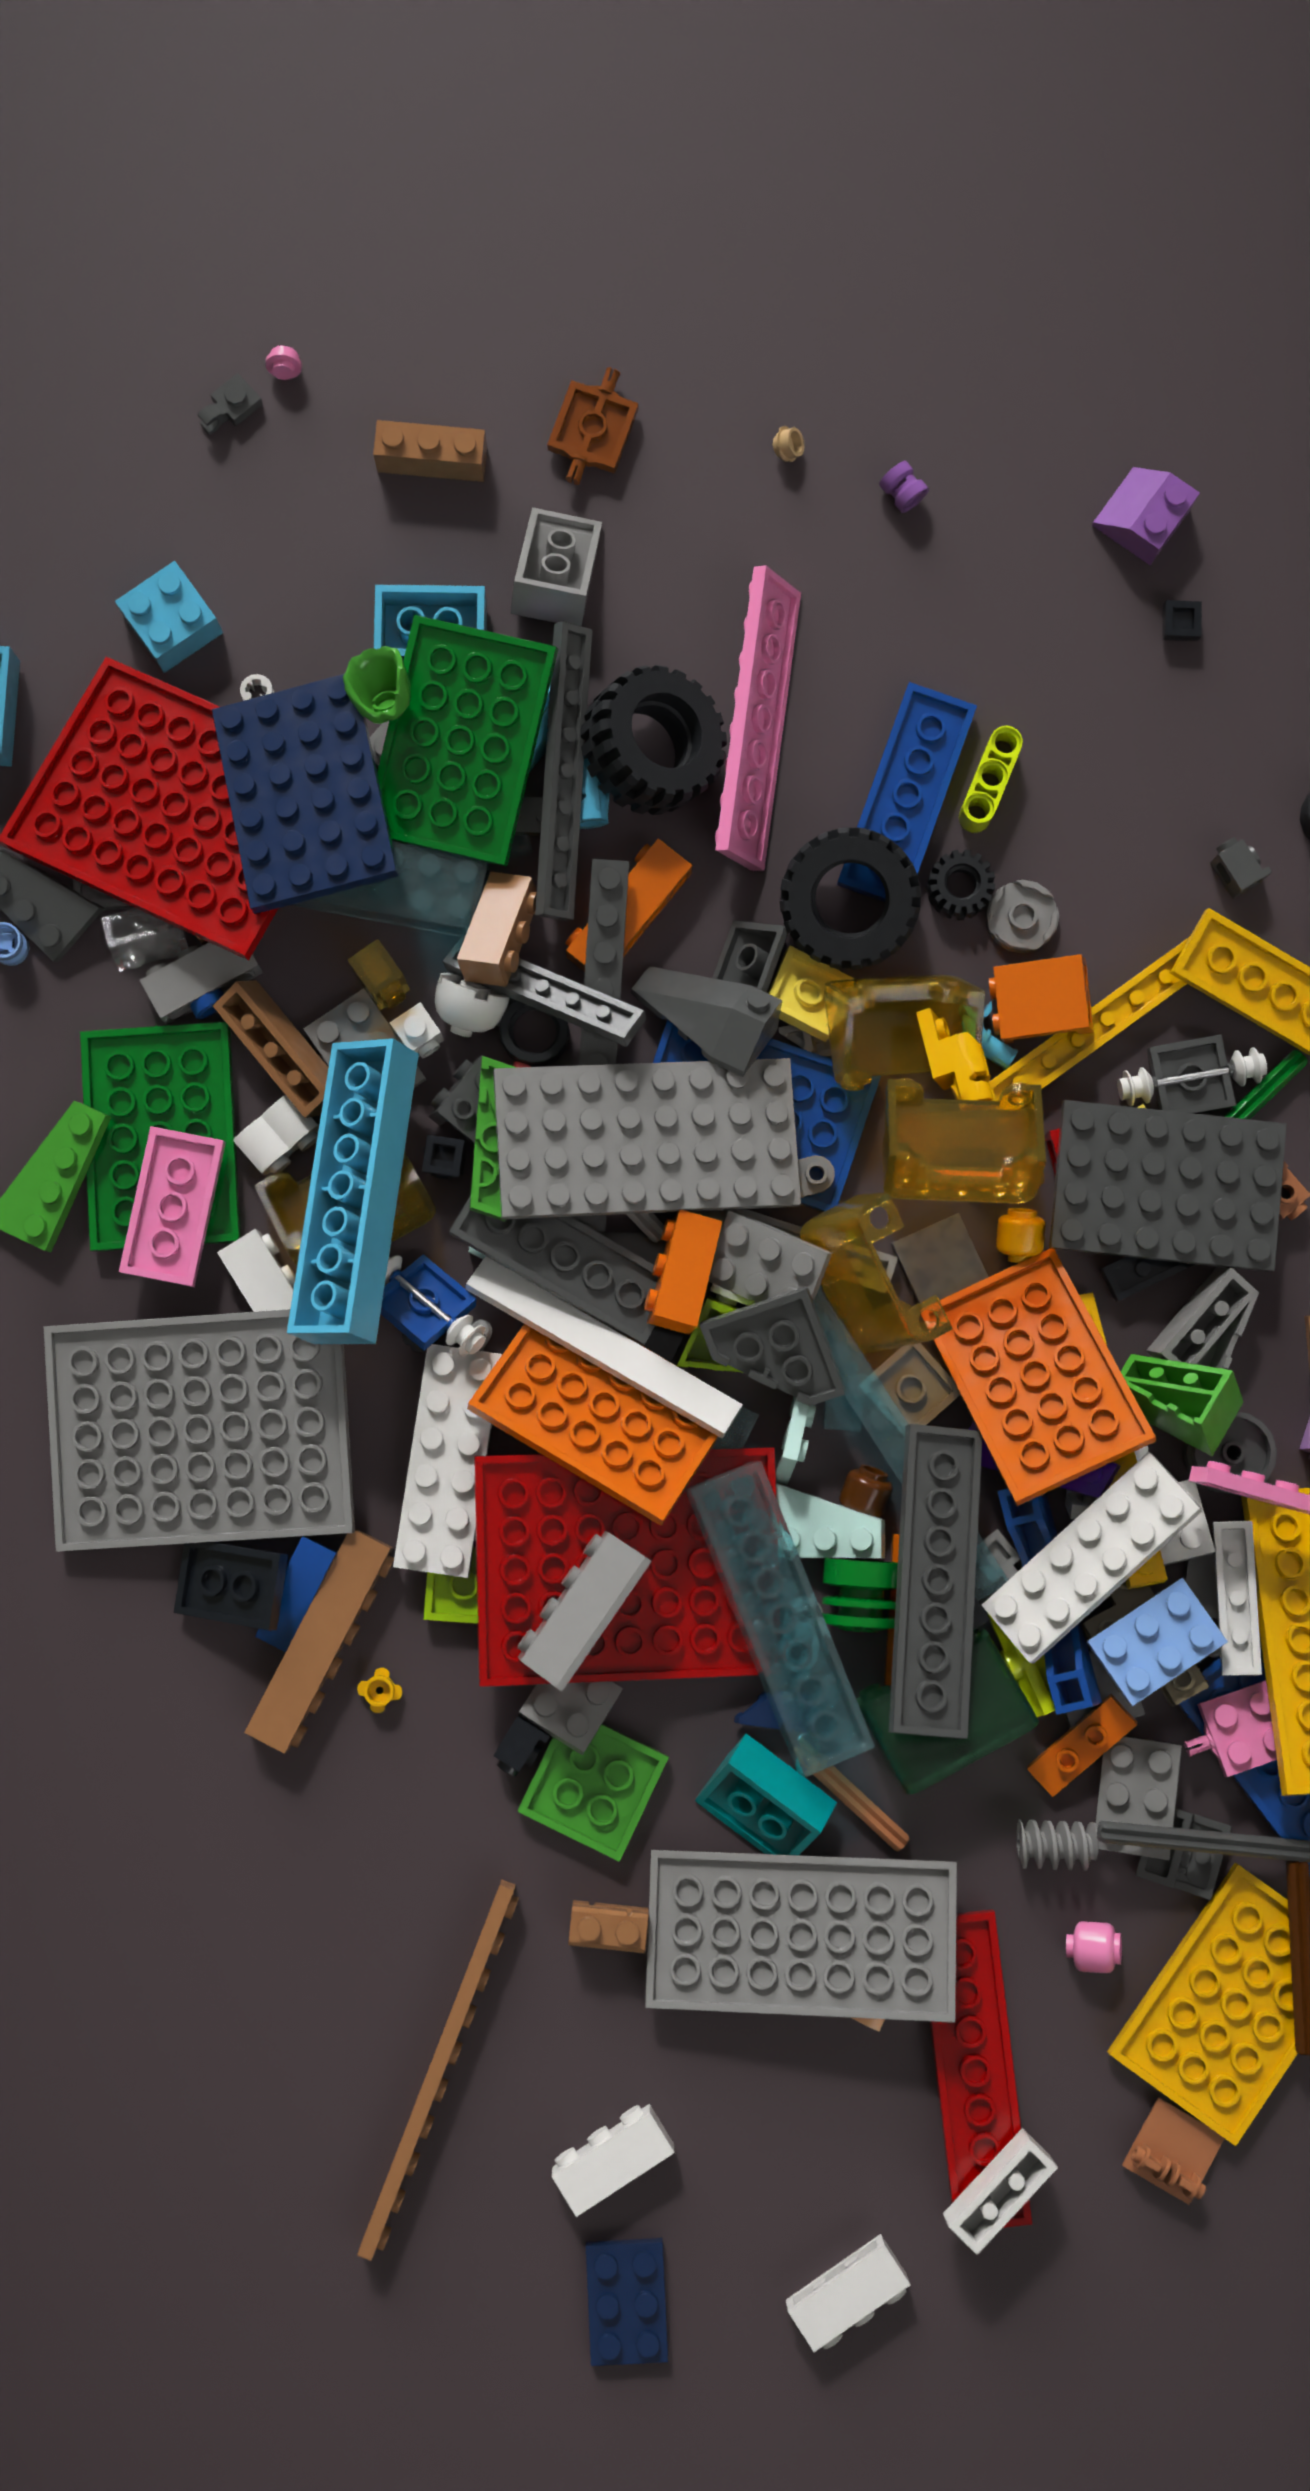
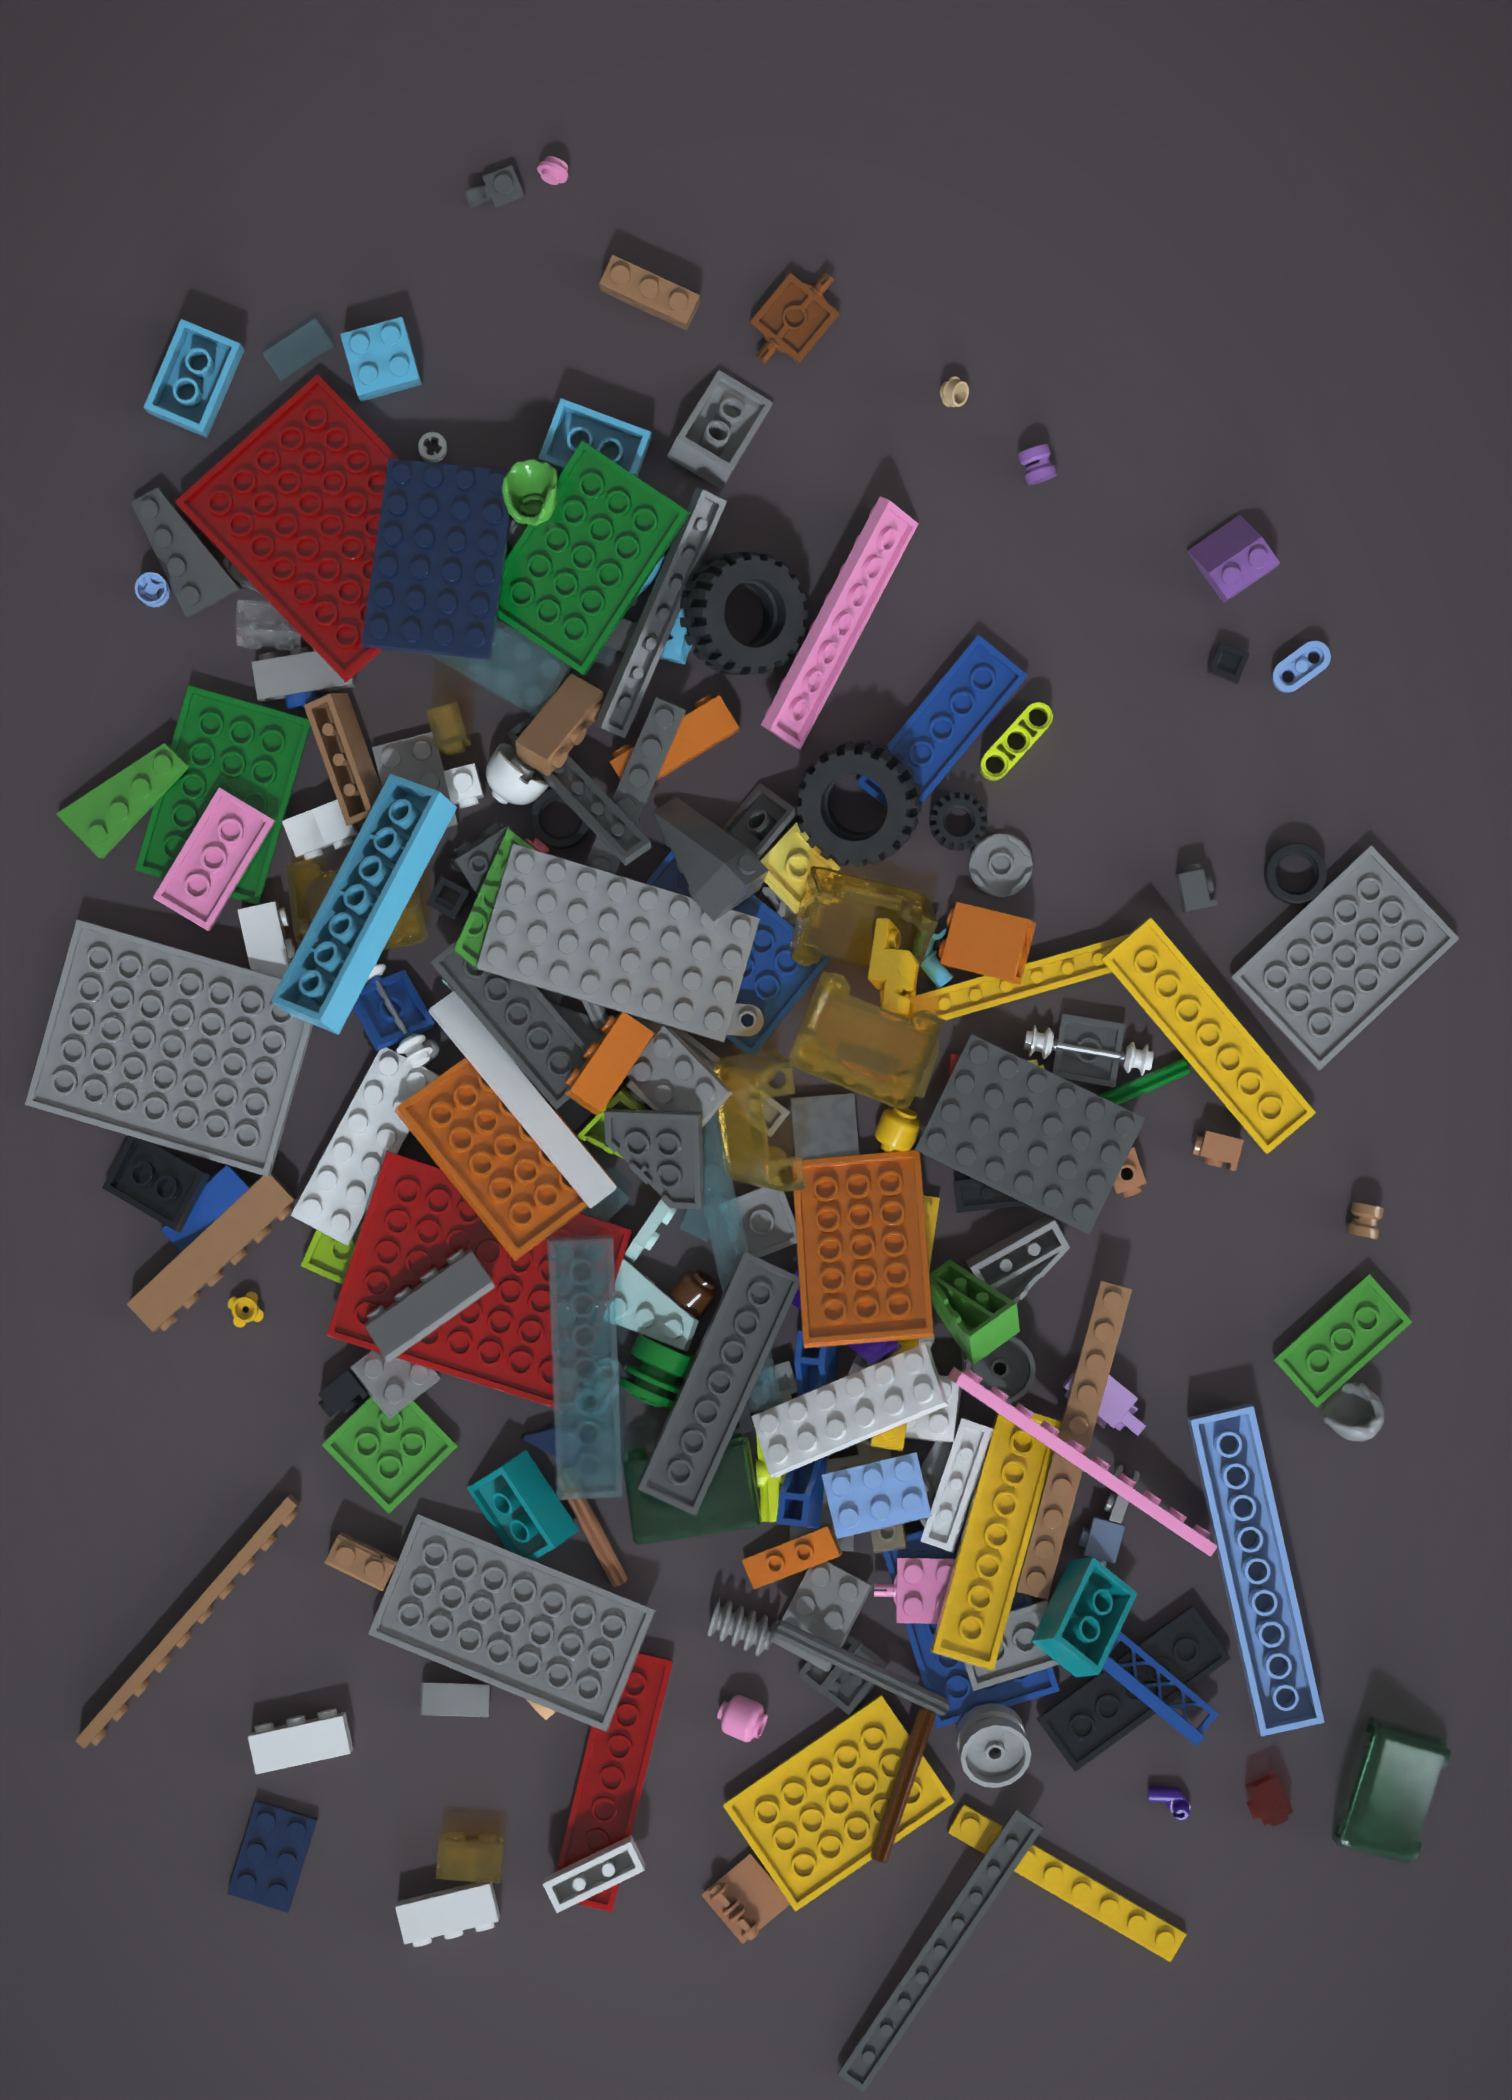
camera: 25 degrees right, 5 degrees up
(77, 641) = (298, 349): none -> clear light blue tile
(767, 2045) = (454, 1699): none -> light grey slope
(850, 2221) = (470, 1857): none -> clear yellow brick
(1258, 600) = (1300, 667): none -> light blue plate

